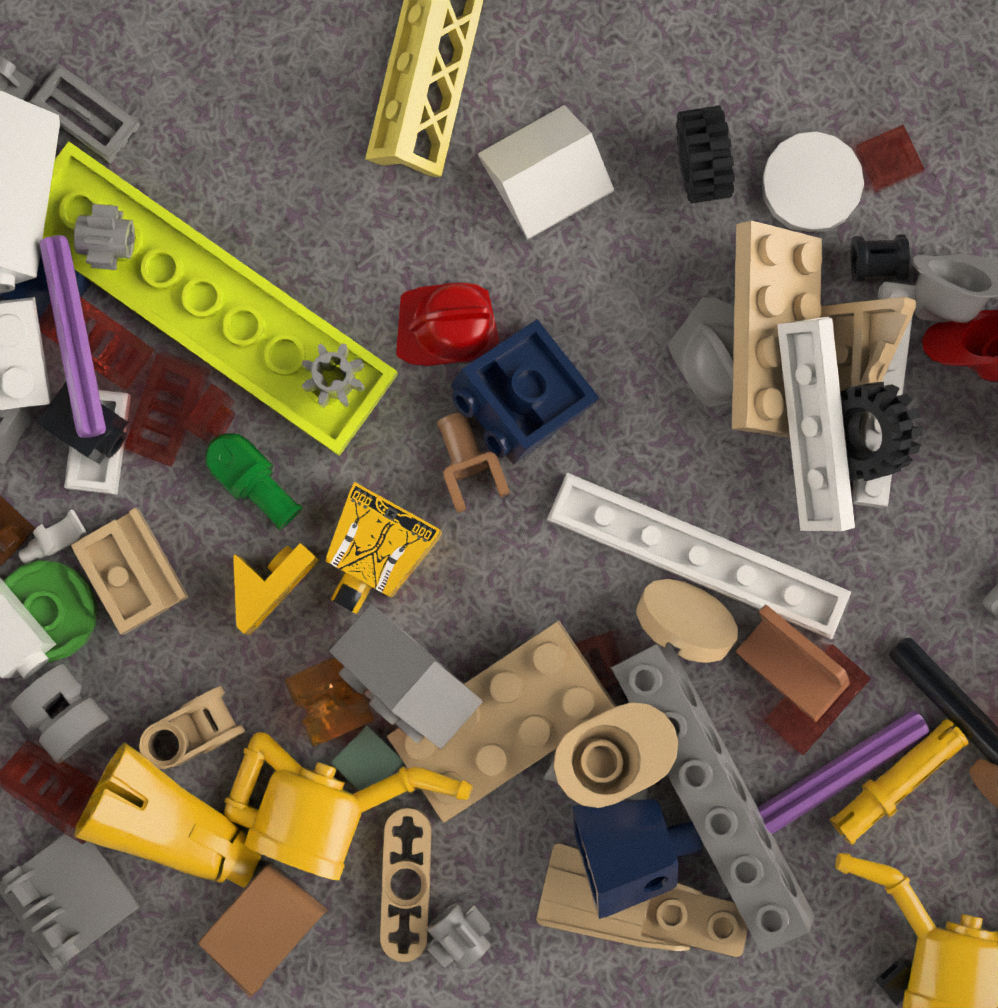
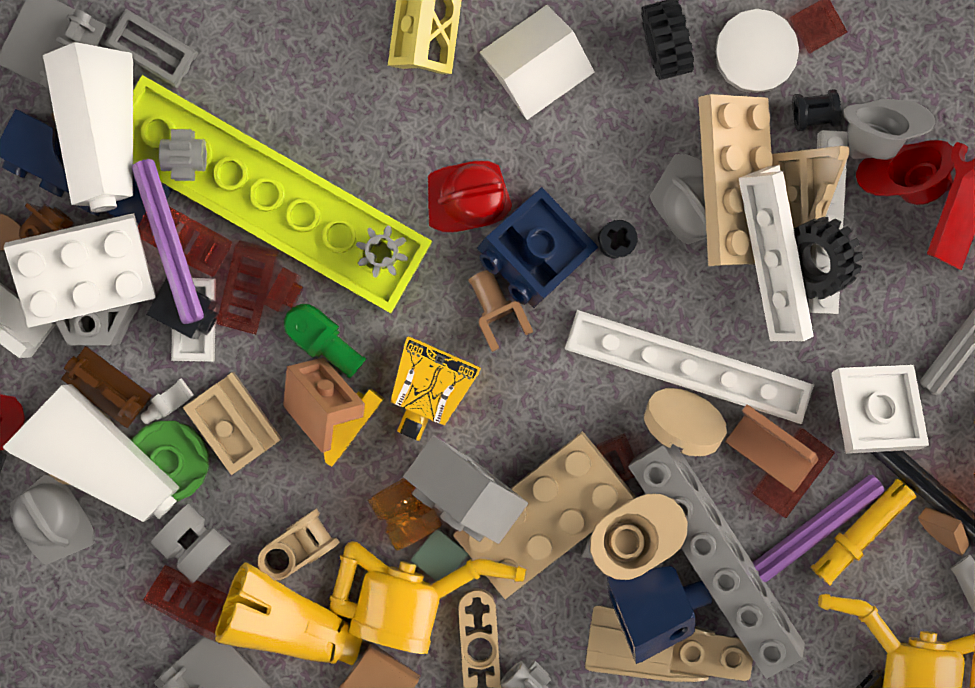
camera: 10 degrees left, 5 degrees up
(238, 547) = (319, 400): none -> nougat panel
(619, 375) = (630, 237): none -> black bush
(930, 627) = (879, 408): none -> white plate

